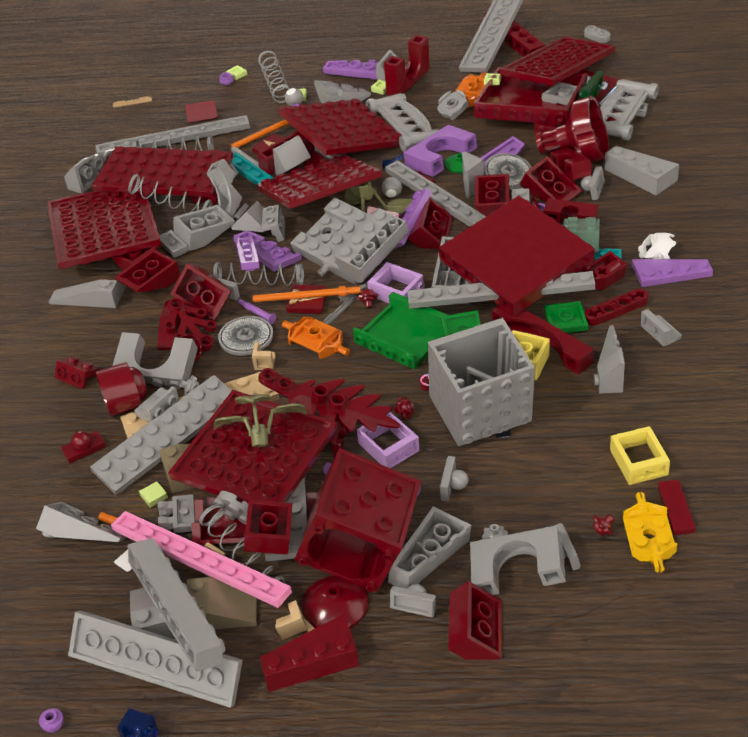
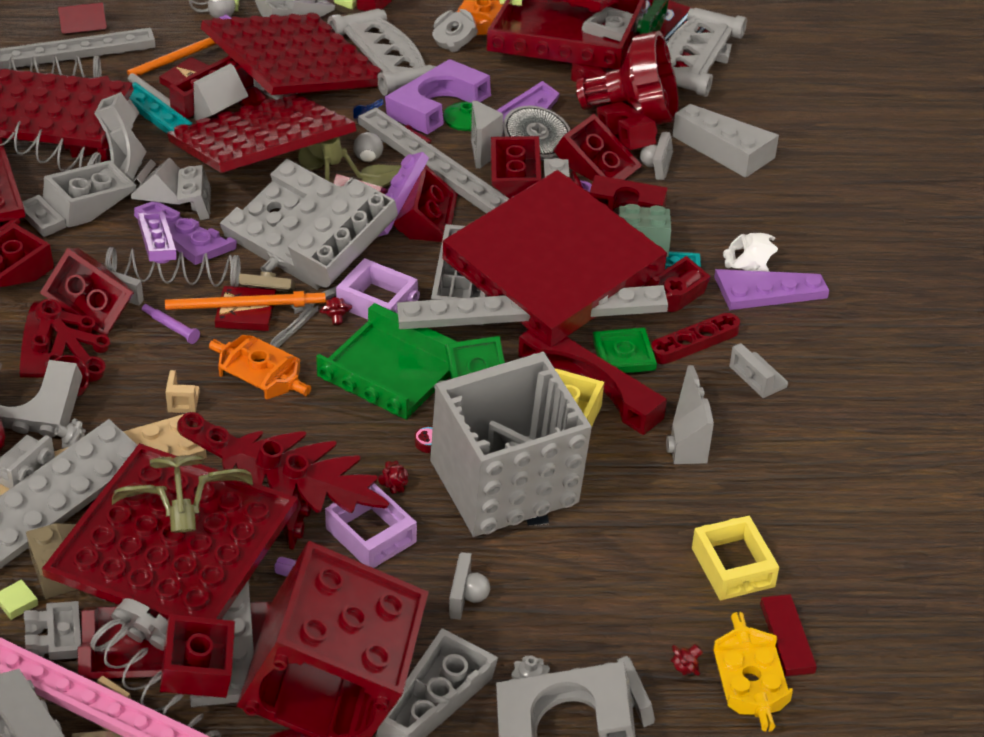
camera: 10 degrees left, 0 degrees up
(241, 334) = (150, 355): piece -> none
(321, 280) = (267, 281): none -> dark tan plate

